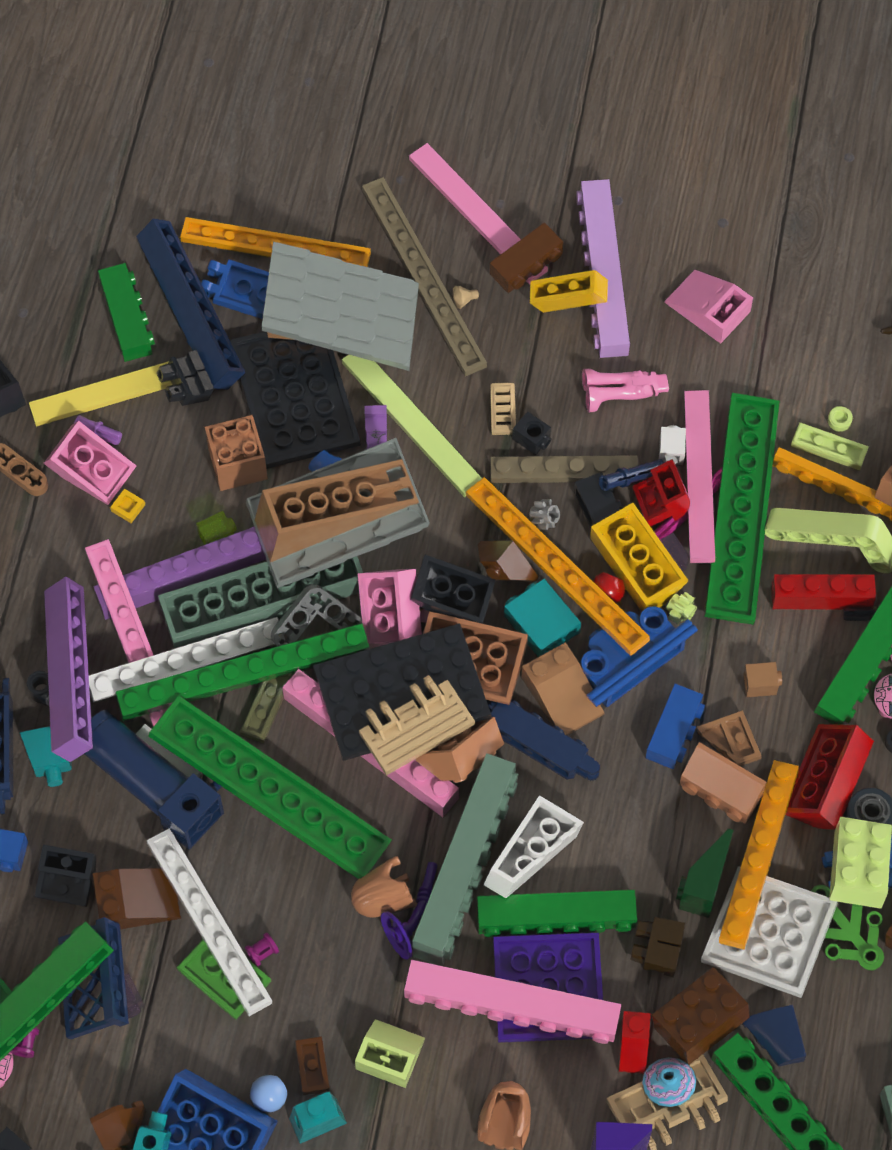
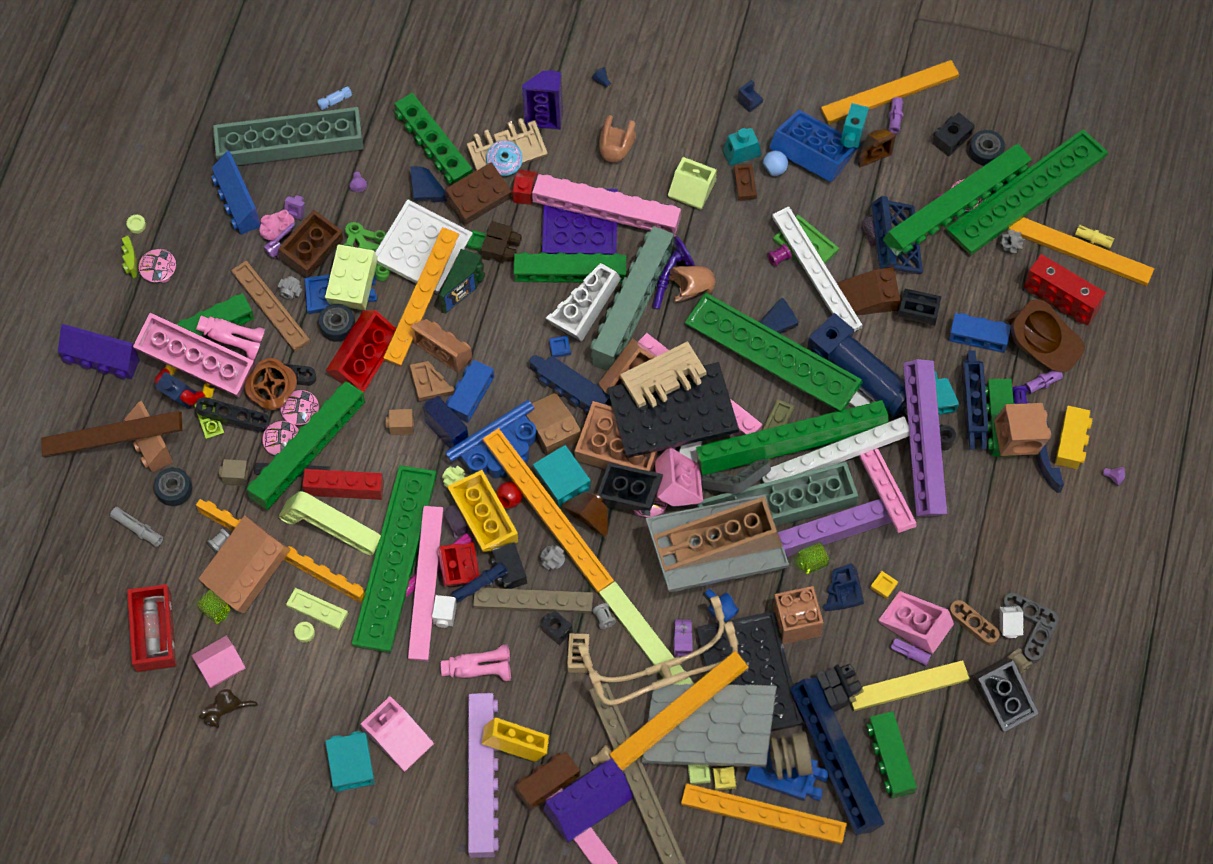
camera: 175 degrees left, 0 degrees up
(177, 500) = (845, 589): none -> dark blue slope
(243, 285) = (791, 755): none -> dark tan wheel
(264, 852) = (780, 317): none -> dark blue slope
(375, 321) = (679, 710): none -> light orange tile
(398, 391) = (664, 666): none -> tan bar
(474, 450) = (604, 616): none -> light grey bush
(479, 243) = (588, 800): none -> dark purple slope
(562, 798) = (560, 346): none -> blue tile
(691, 954) = (476, 241): none -> green tile
(701, 669) = (444, 422): none -> clear blue brick
(760, 271) = (350, 761): none -> teal brick
(878, 1035) = (358, 184): none -> medium lavender rock

